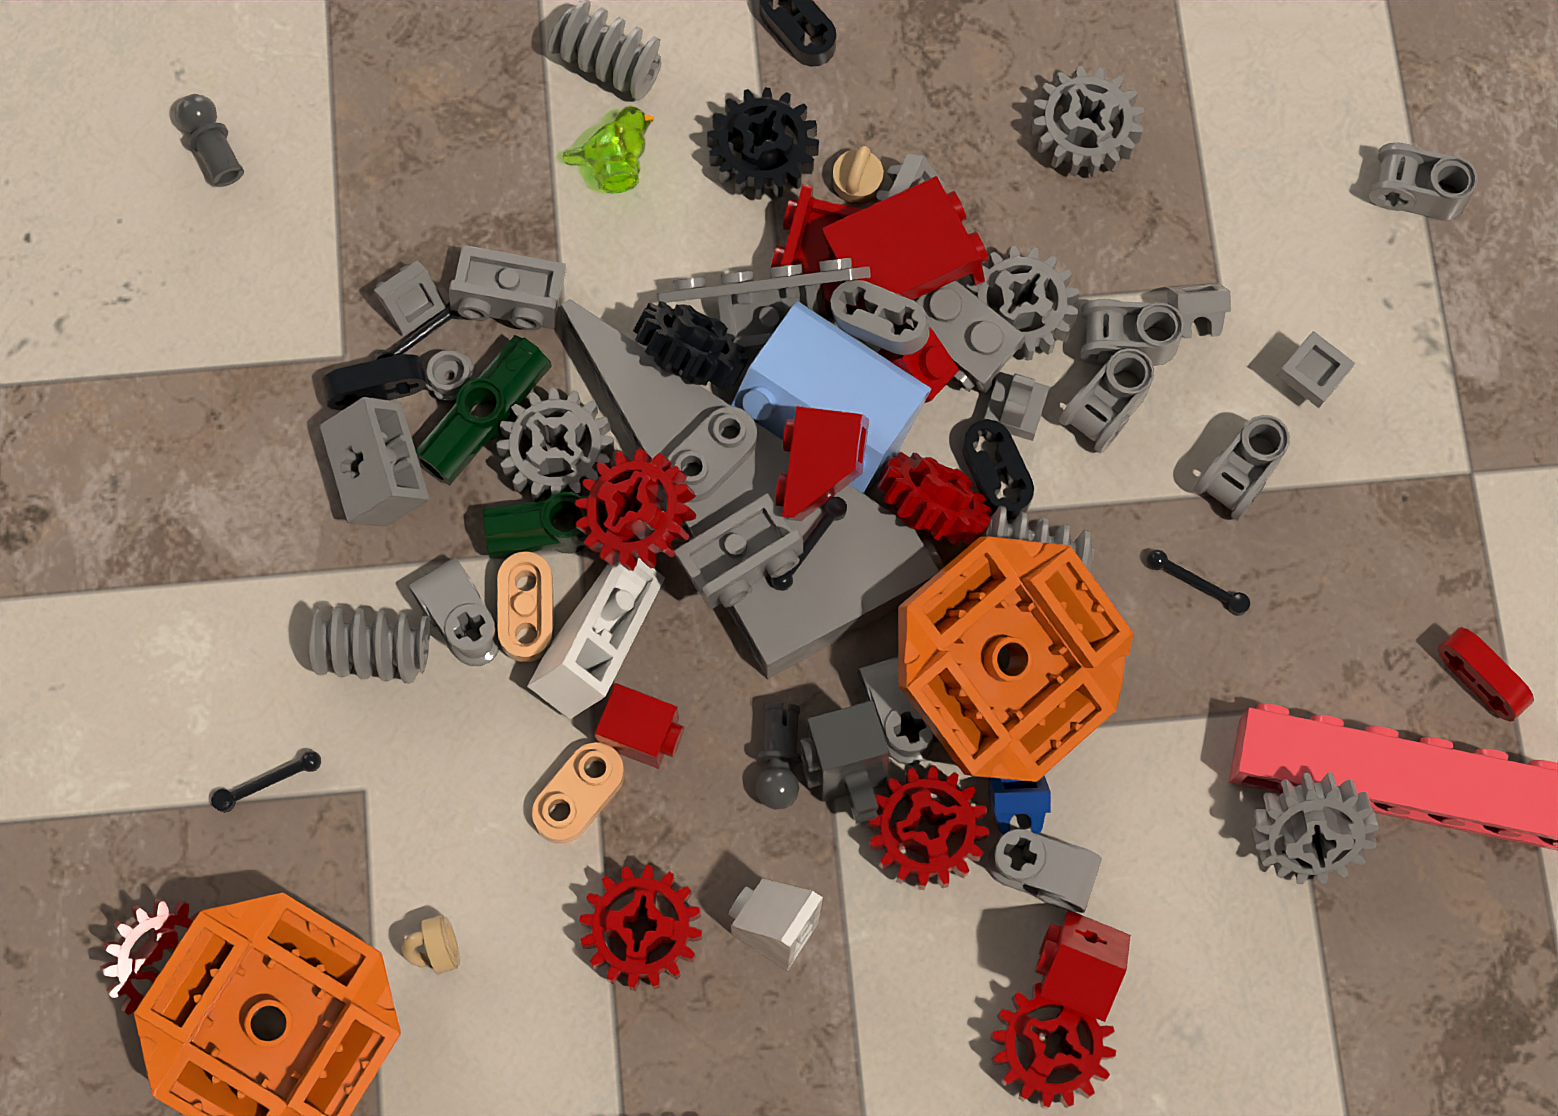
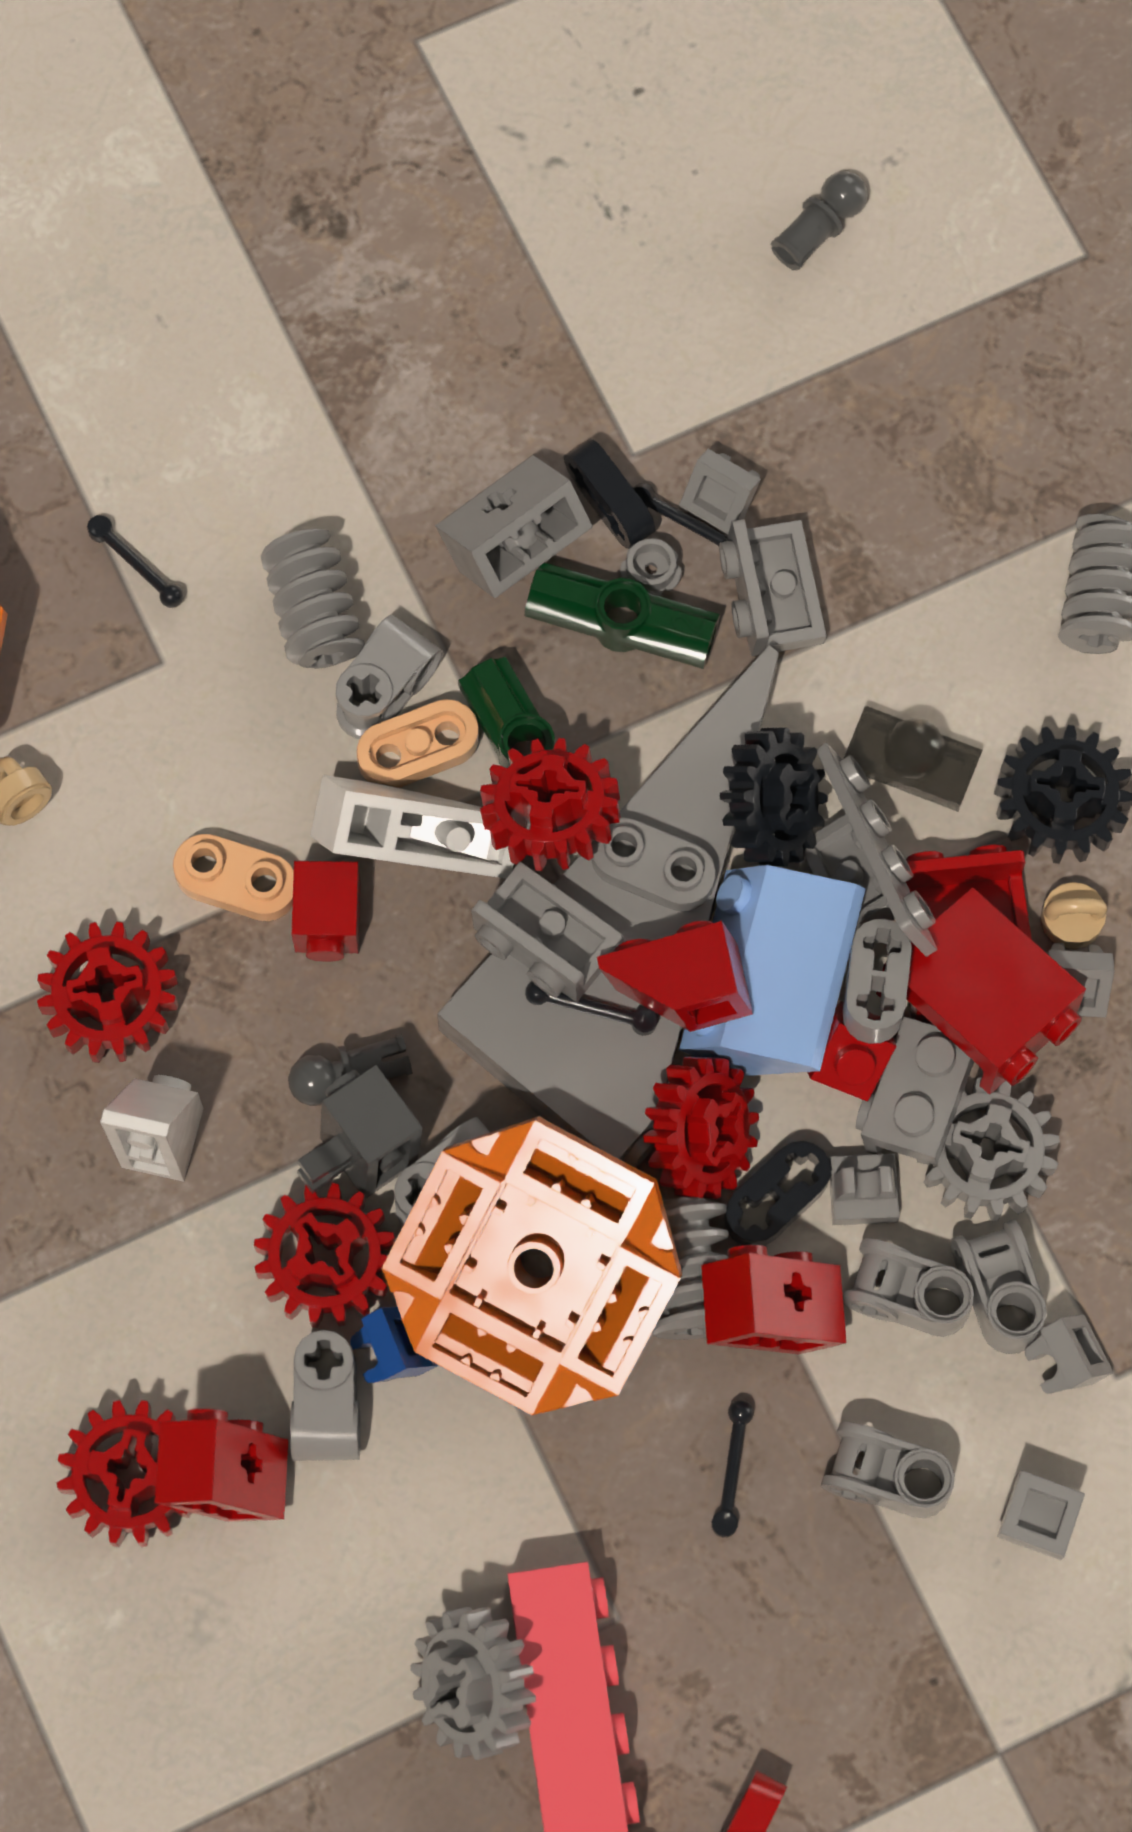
camera: 70 degrees right, 0 degrees up
(555, 423) = (631, 718): light grey gear -> none
(615, 151) = (986, 640): clear neon green animal -> none
(686, 241) = (913, 757): none -> clear smoke tile
(1092, 495) = (773, 1301): none -> red brick

